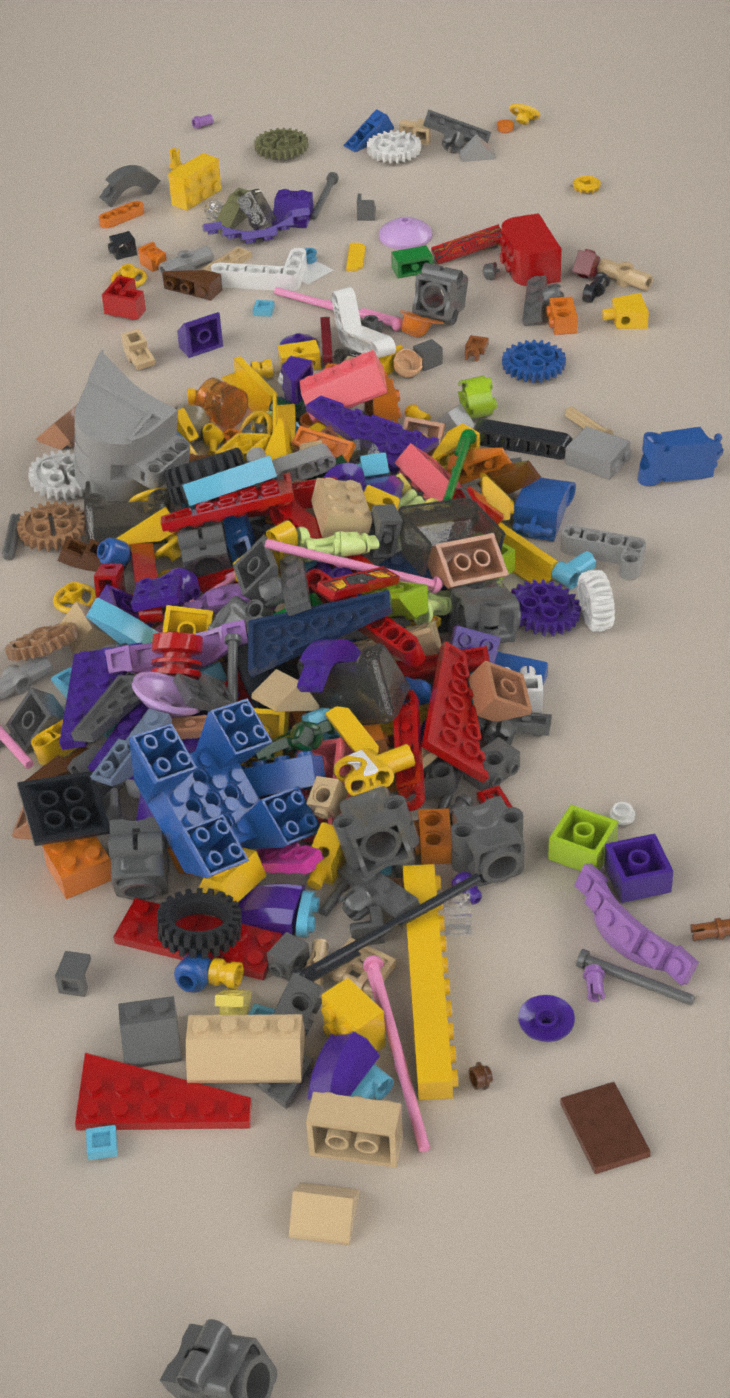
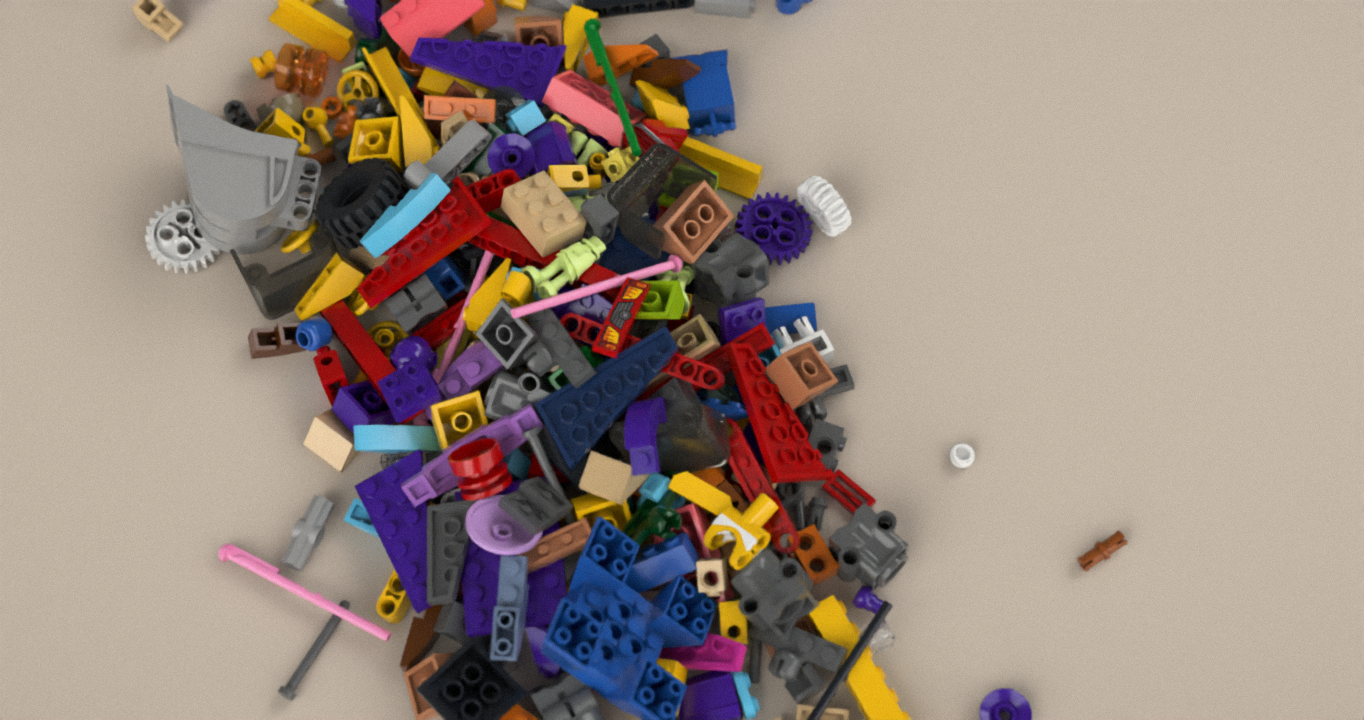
camera: 25 degrees left, 25 degrees up
(11, 537) = (181, 342): dark grey axle -> none
(33, 715) = (361, 577): dark grey slope -> none
(36, 530) = (235, 300): medium nougat gear -> none
(42, 641) = (309, 481): medium nougat gear -> none
(61, 432) = (146, 166): nougat slope -> none
(73, 593) = (296, 389): yellow piece -> none
(569, 572) = (776, 169): medium azure piece -> none
(581, 838) = (948, 507): lime brick -> none
(585, 959) = (1053, 635): dark grey bar -> none
(594, 979) = (1025, 656): medium lavender pin -> none
(606, 547) = (793, 127): light grey beam -> none
(628, 934) = (1027, 593): medium lavender piece -> none
(638, 868) = (1009, 518): dark purple brick -> none

